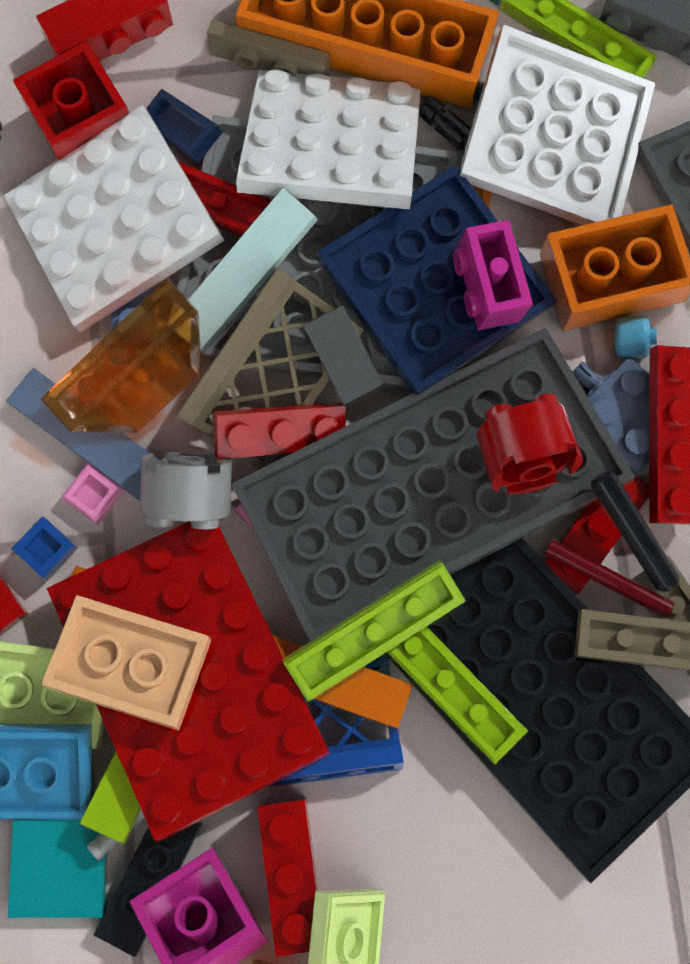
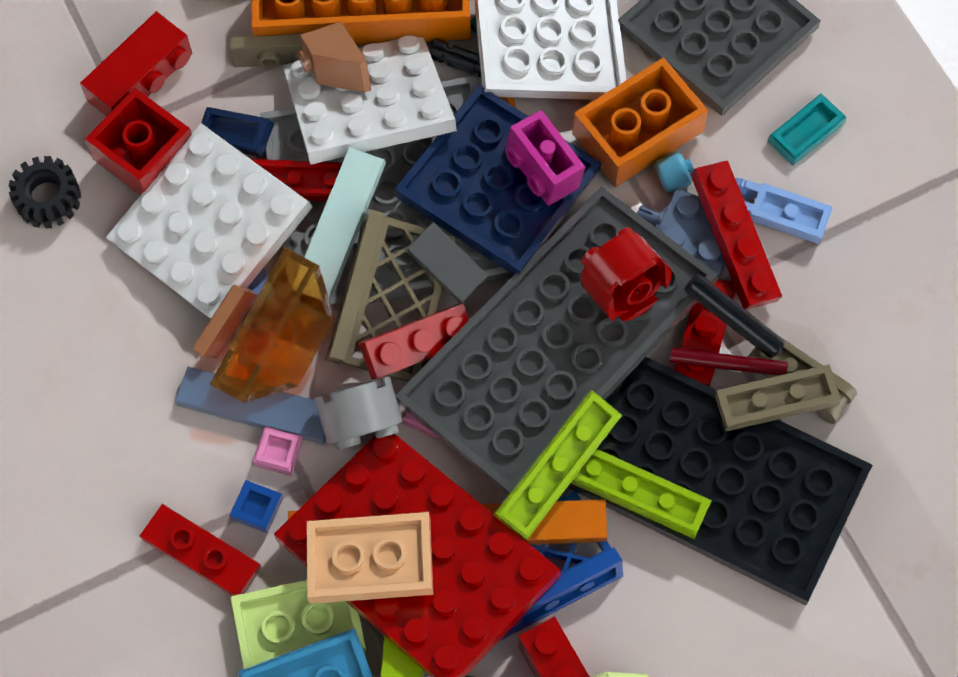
camera: 20 degrees left, 10 degrees down
(84, 334) = (225, 321): none -> nougat tile
(308, 80) = (334, 58): none -> nougat slope

